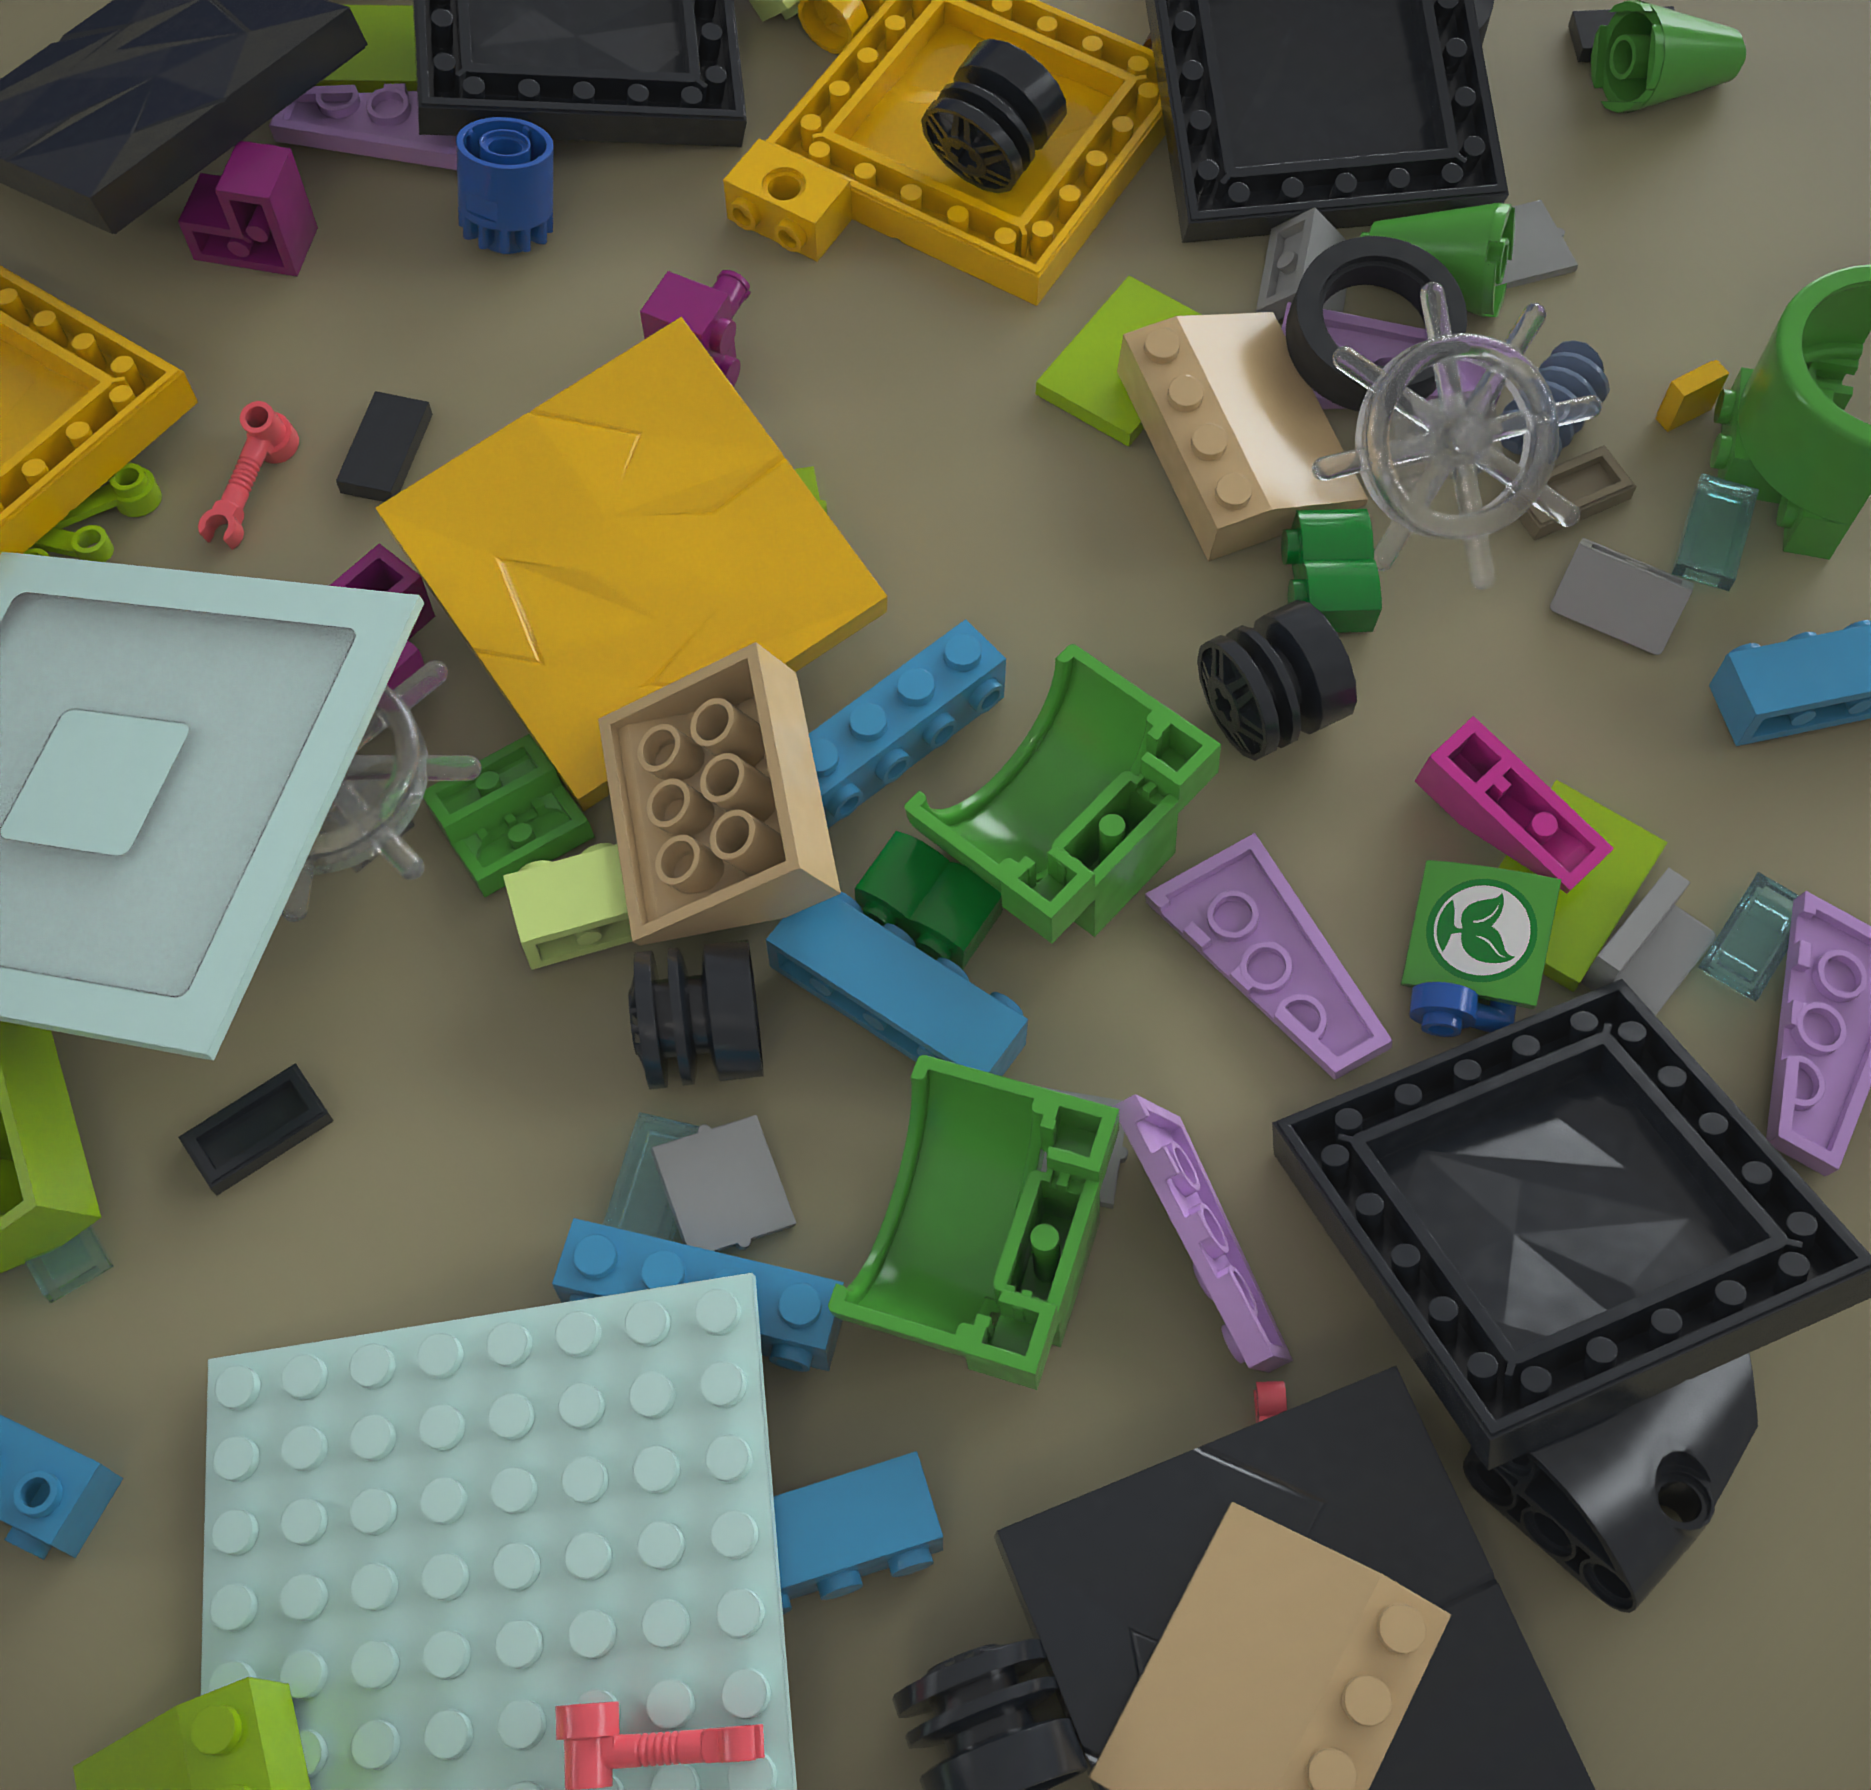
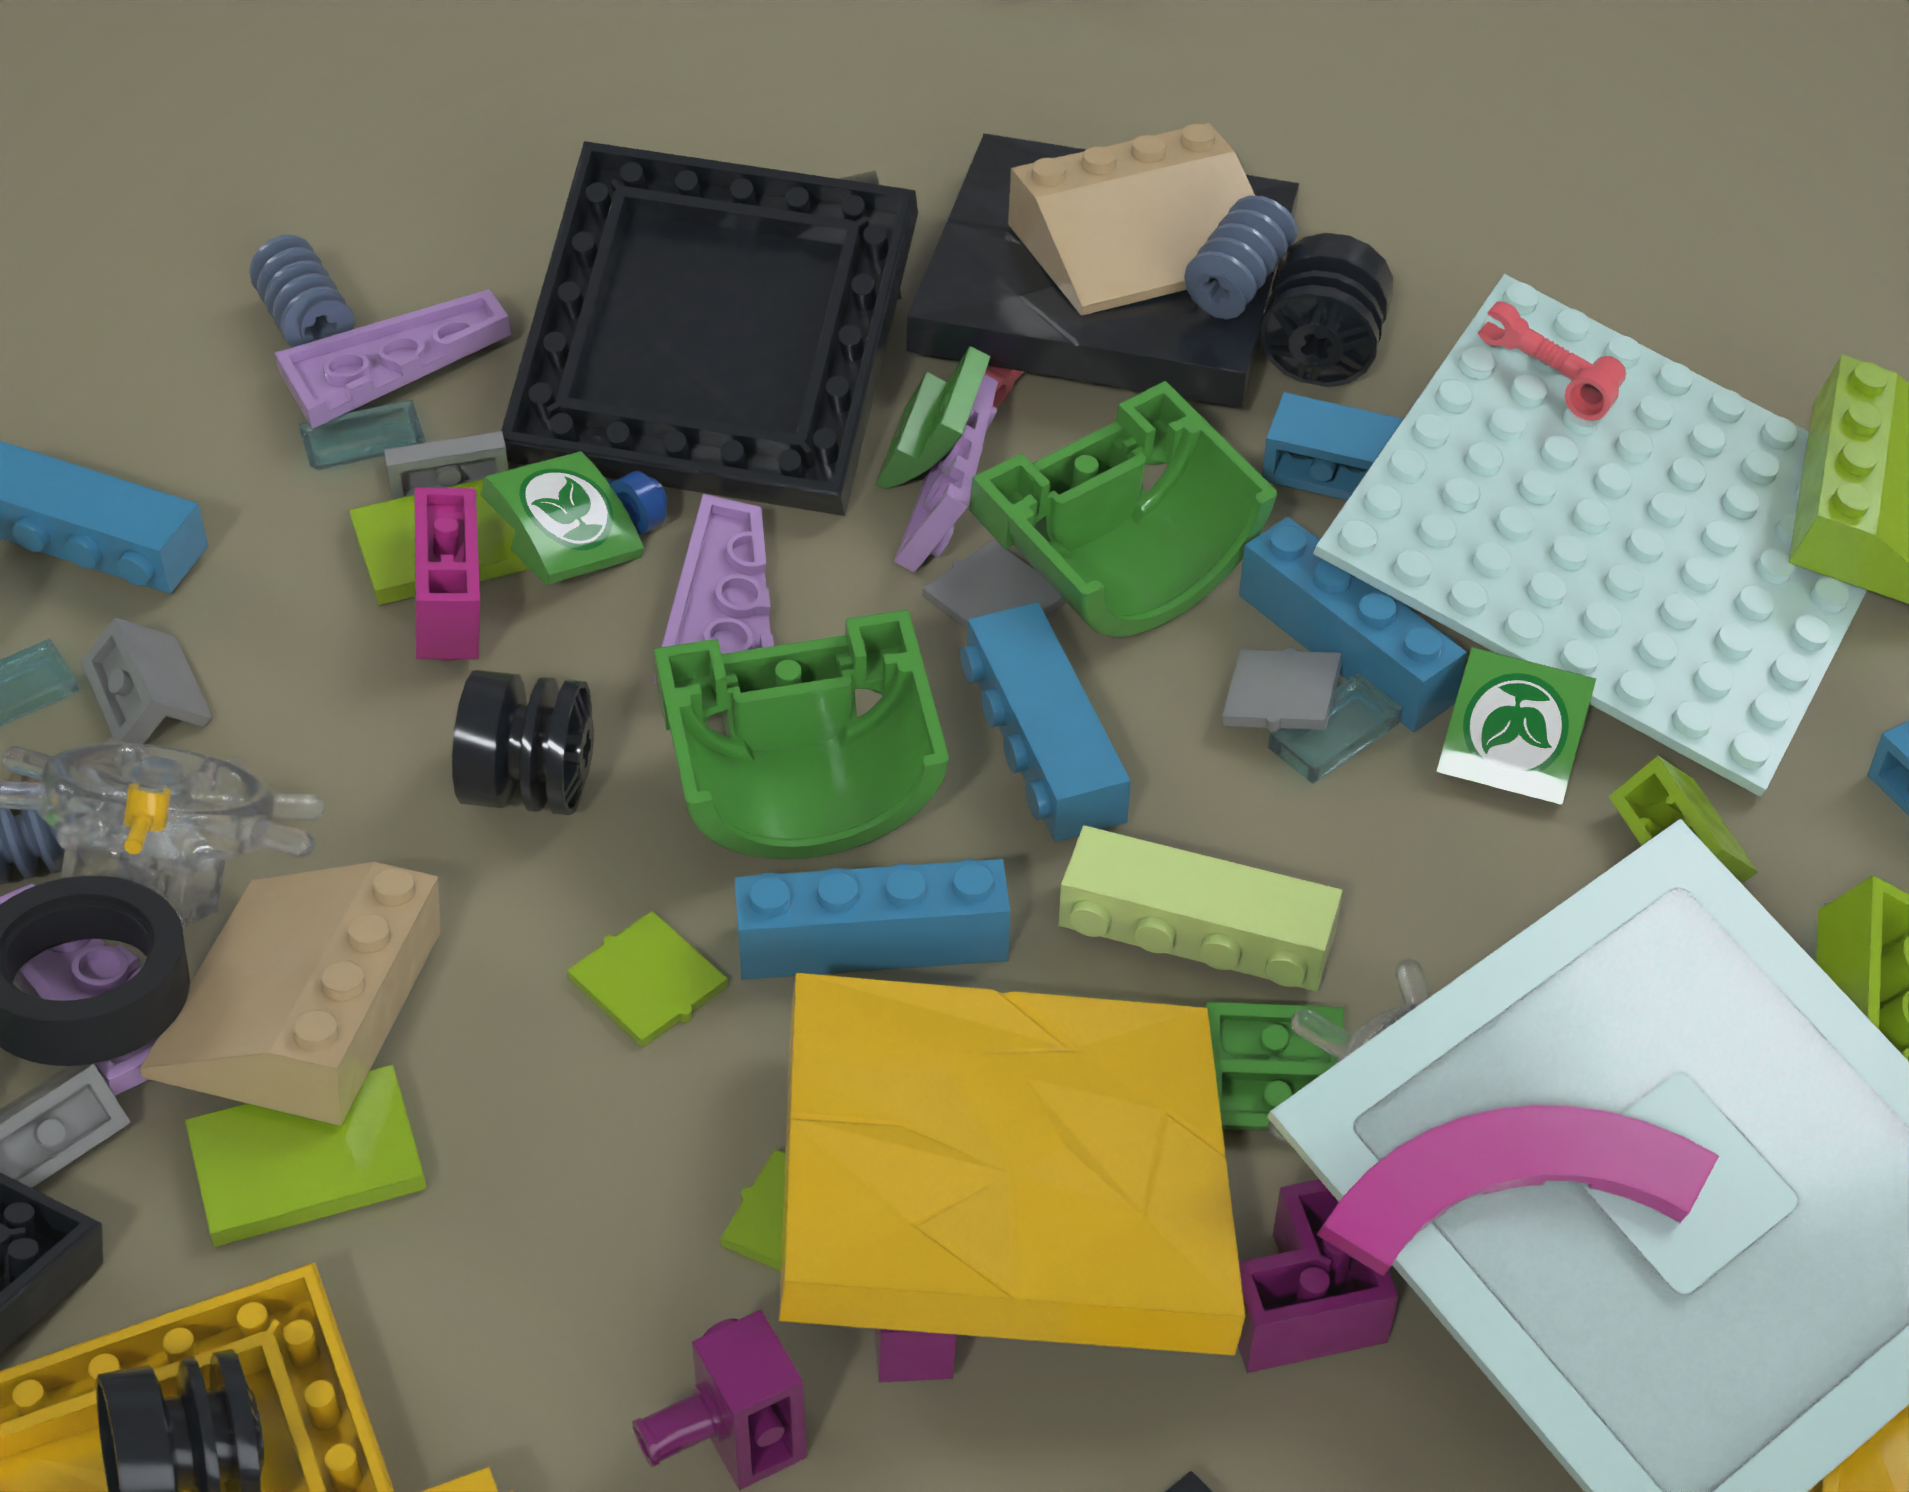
camera: 145 degrees left, 15 degrees down
(224, 690) = (1511, 1151): none -> dark pink tile
(267, 1255) = (1665, 794): none -> lime brick
(472, 1262) = (1516, 725): none -> slope
(696, 1014) = (1213, 765): black wheel -> none
(717, 801) = (1098, 875): tan slope -> none
(929, 898) = (978, 790): green brick -> none
(1029, 610) = (647, 979): none -> lime piece
(1106, 1680) = (1240, 256): none -> sand blue piece
(1266, 1271) = (932, 420): none -> bright green slope
(1334, 566) = (364, 819): green brick -> none
(1399, 329) = (144, 813): none -> yellow hand

